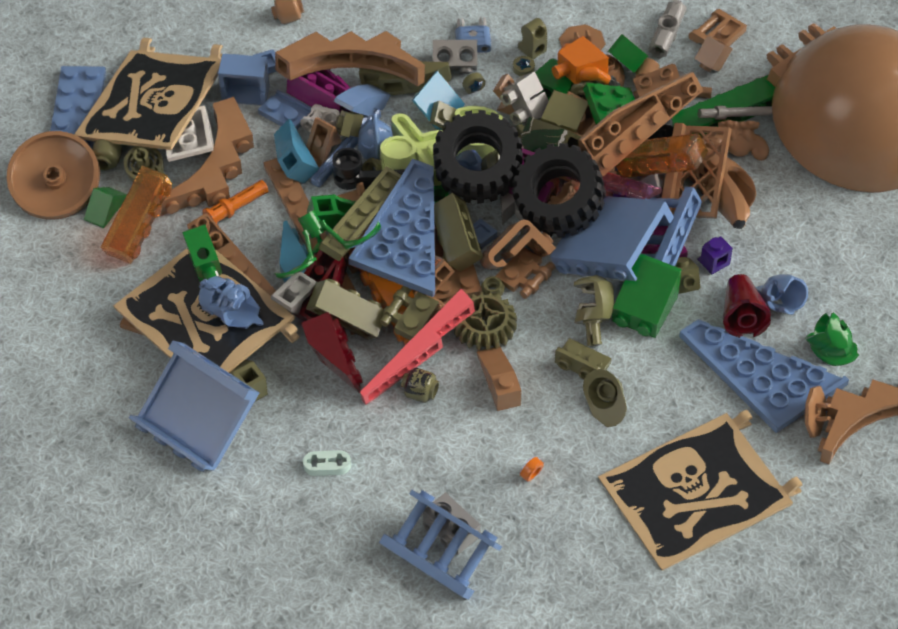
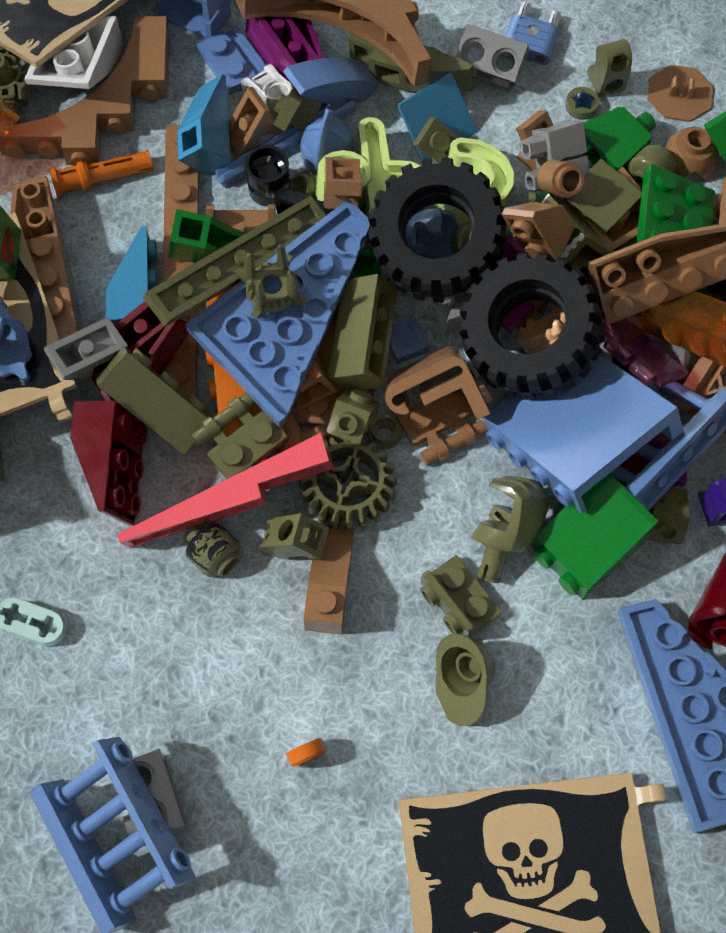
camera: 20 degrees right, 15 degrees up
(313, 226) = (148, 264): green plant -> none
(391, 228) = (254, 281): none -> olive piece
(402, 151) = (341, 181): none -> medium nougat slope
(466, 358) = (294, 537): none -> olive leg
(472, 280) = (352, 414): none -> olive bracket
(473, 83) = (500, 105): olive tile -> none
(536, 107) = (560, 178): none -> medium nougat brick
(539, 133) = (540, 227): none -> medium nougat slope
(583, 62) = (661, 131): orange torso -> none

